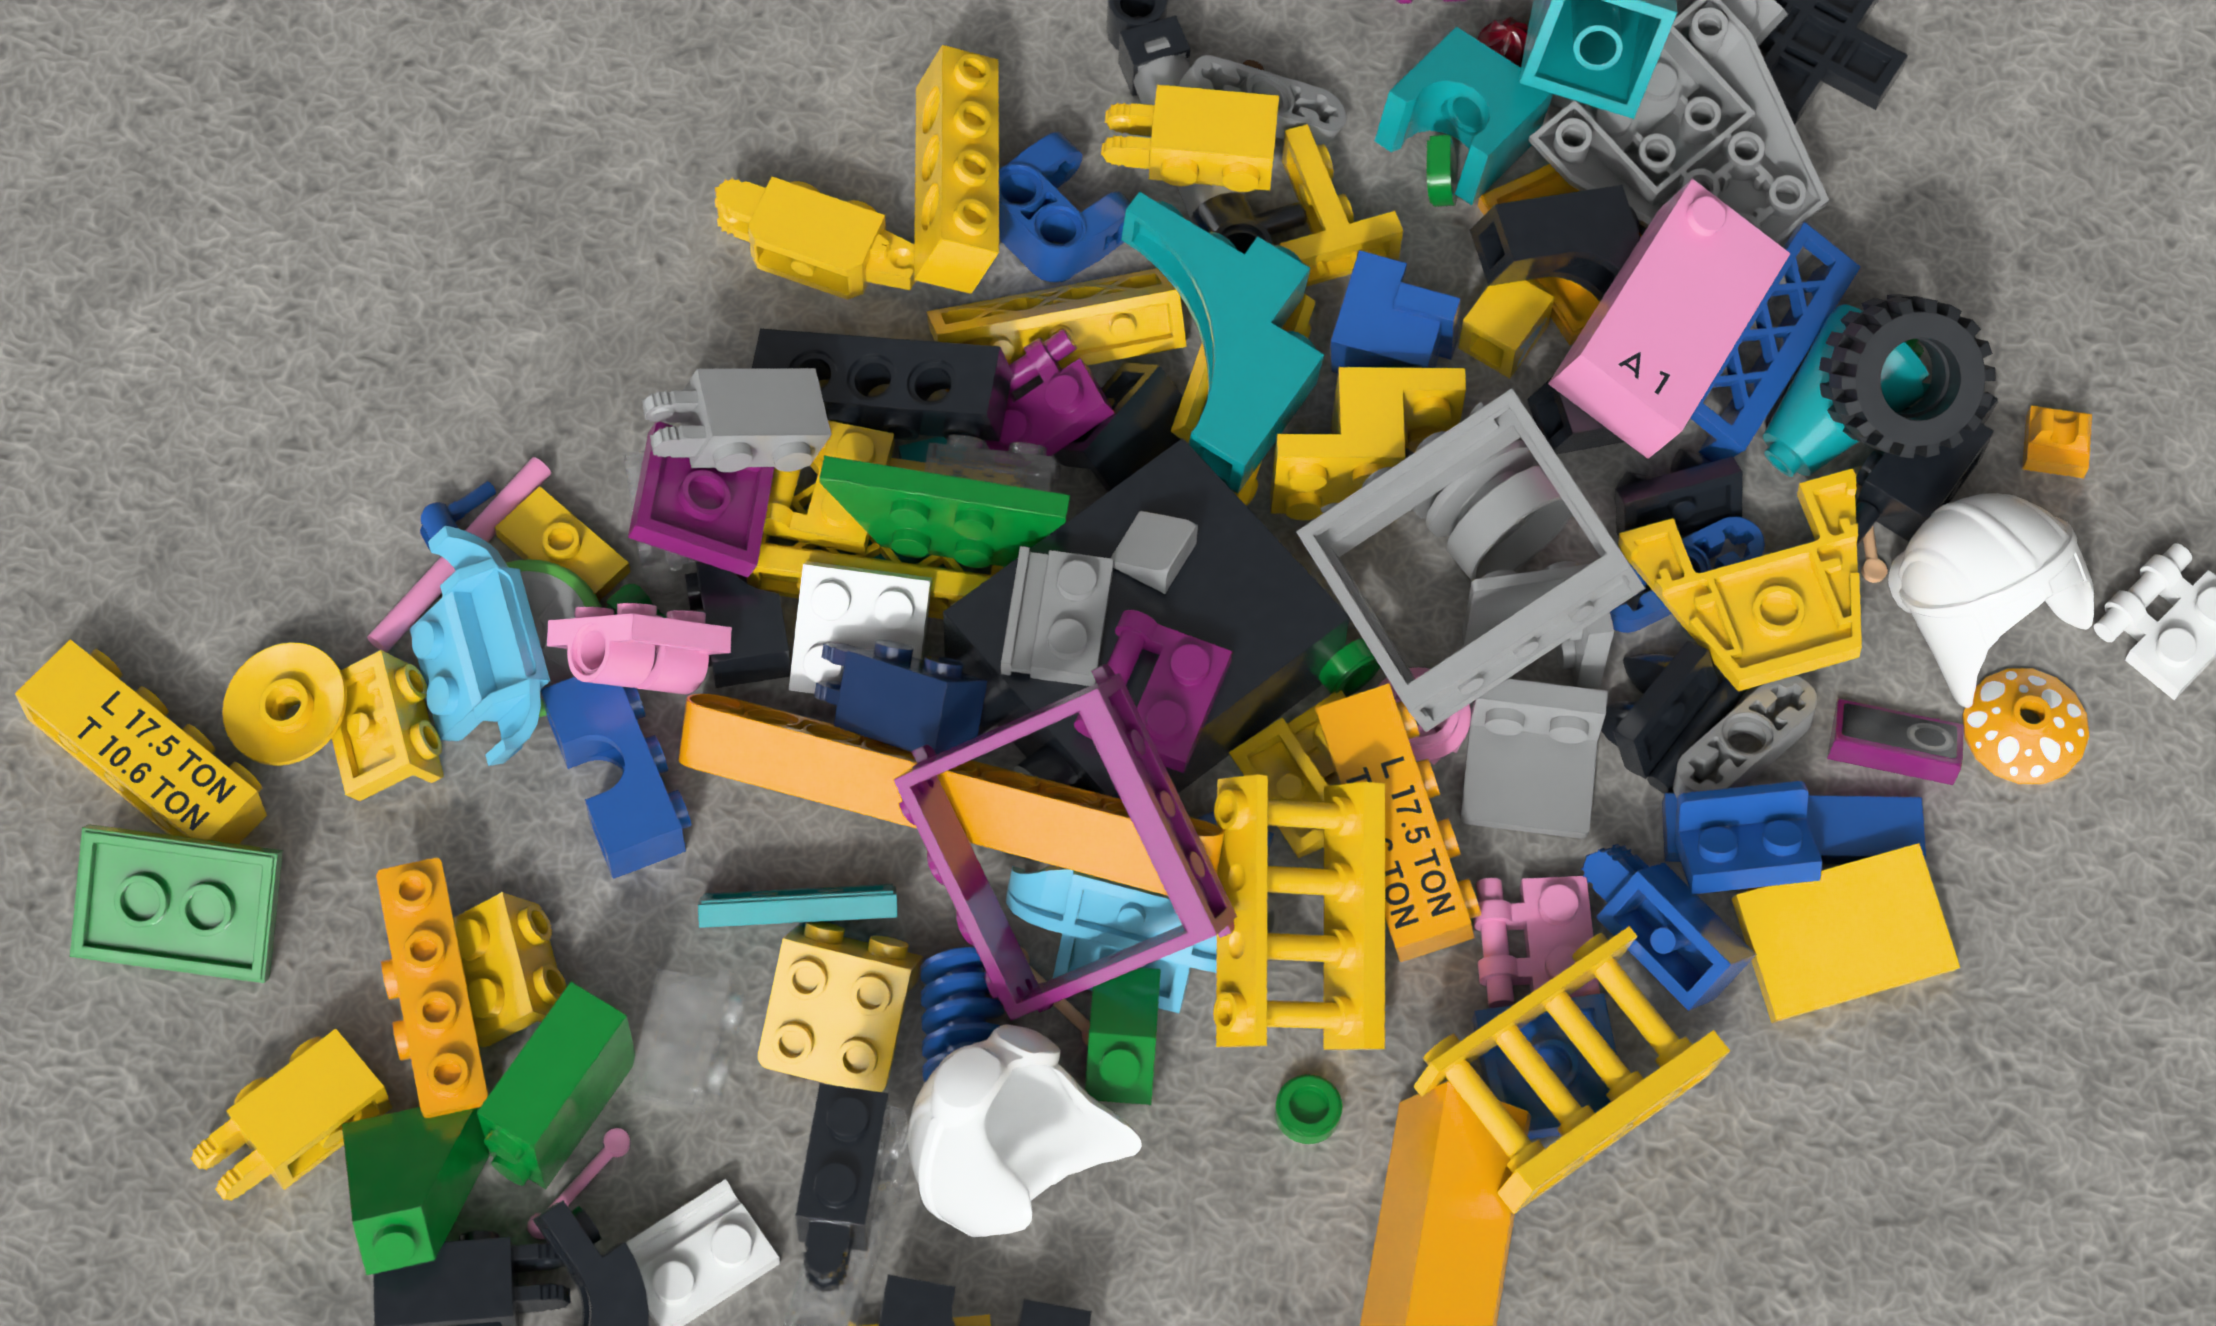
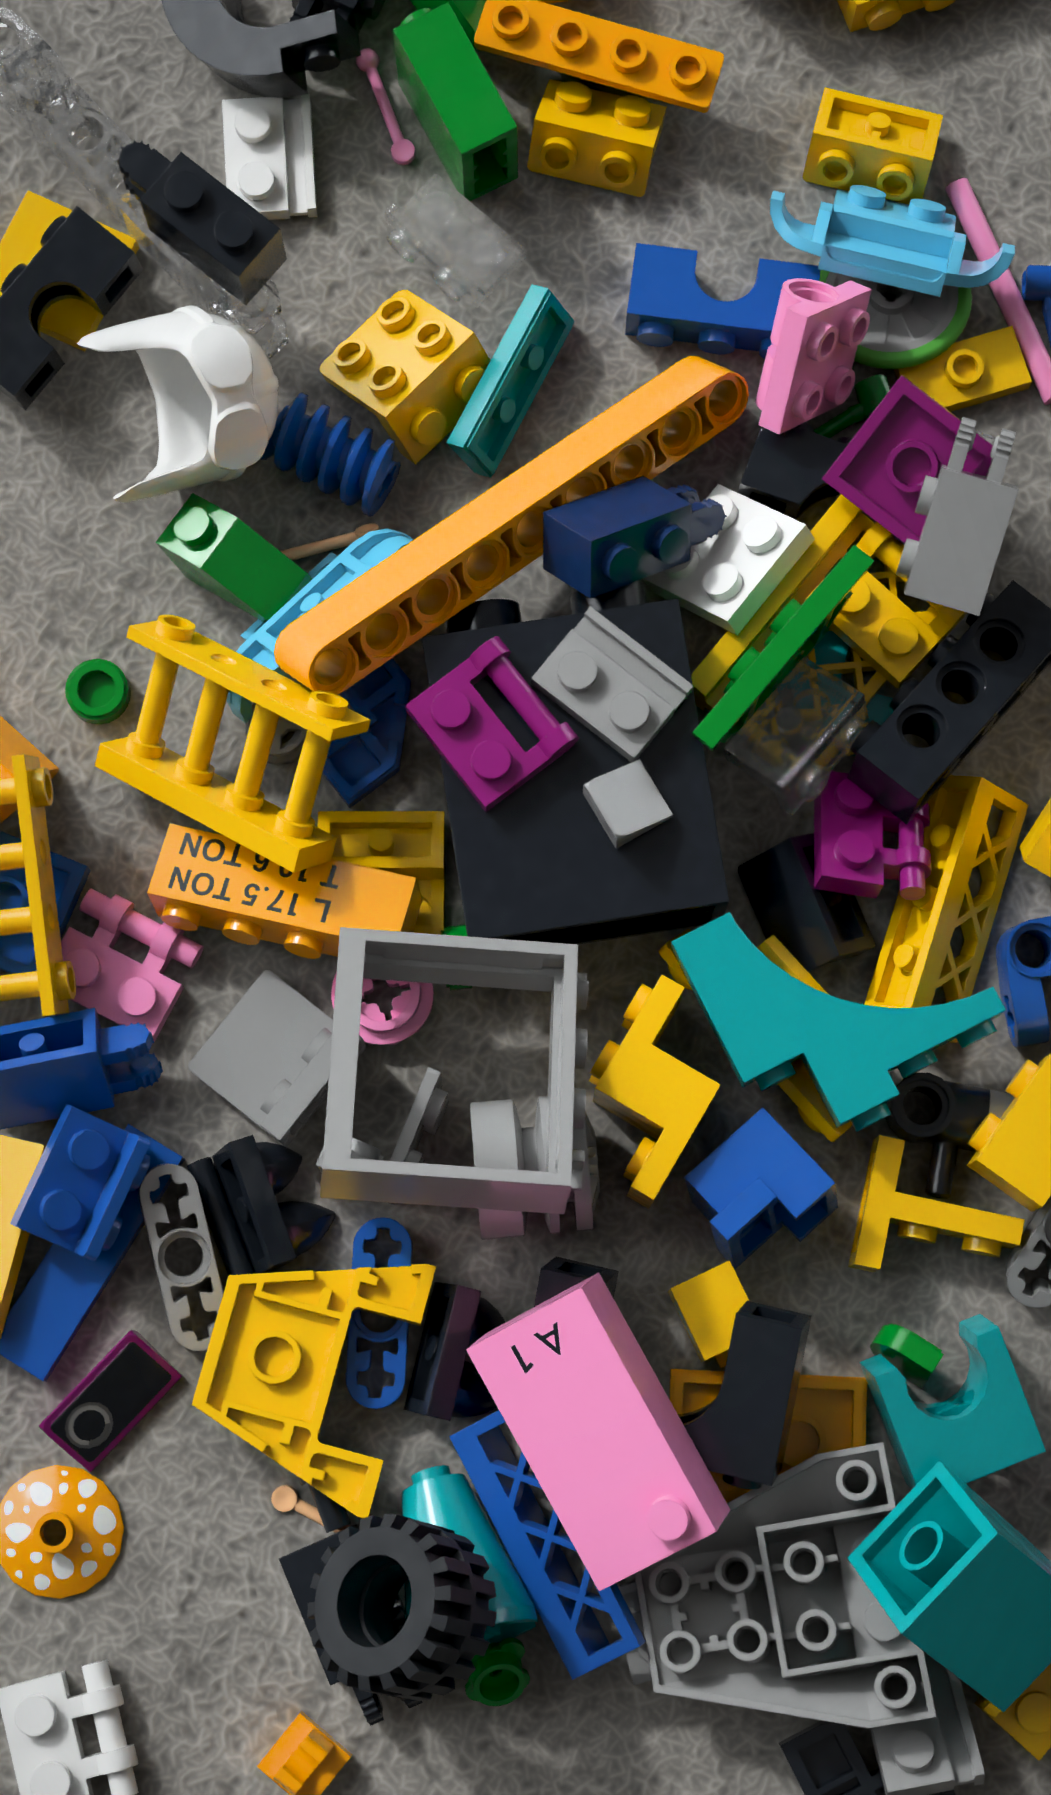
camera: 125 degrees right, 15 degrees up
(268, 688) = (935, 58): yellow dish -> none
(1151, 807) = (274, 620): magenta window -> none
(1506, 38) = (1022, 1505): dark red plate -> none
(1982, 571) = (184, 1567): white piece -> none

